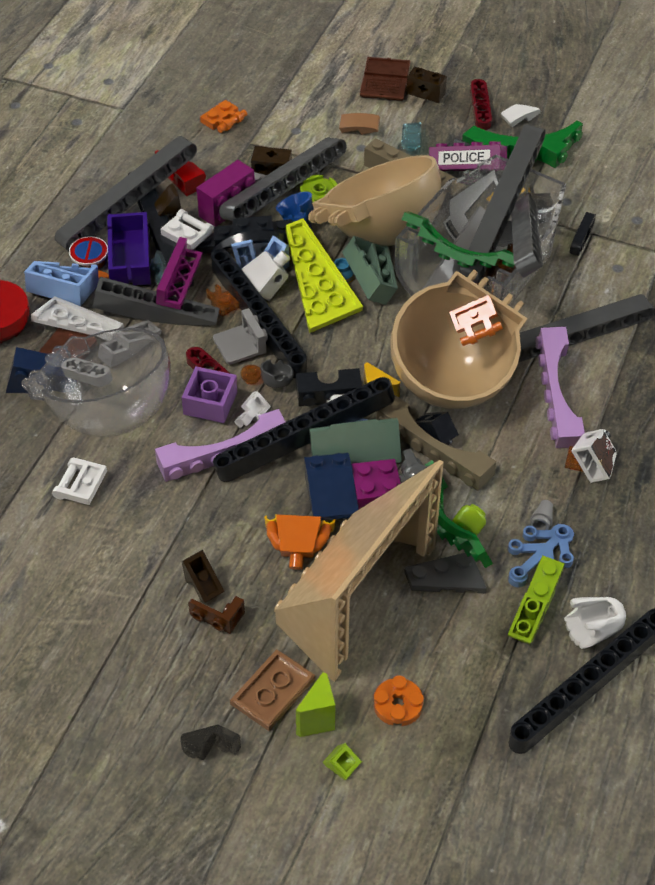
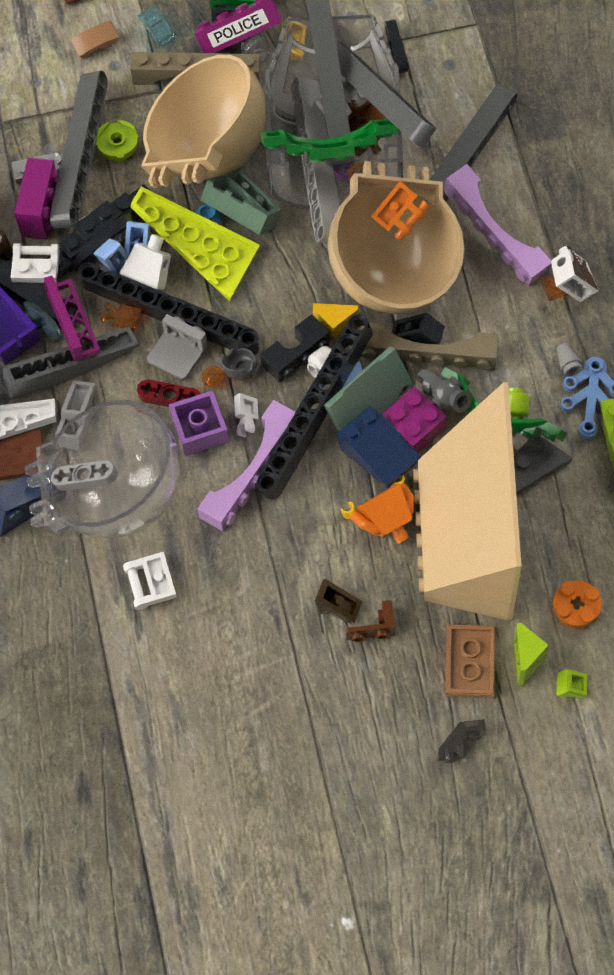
camera: 30 degrees left, 15 degrees up
(268, 159) = (45, 134): dark brown brick -> none
(296, 206) = (117, 175): blue helmet -> none

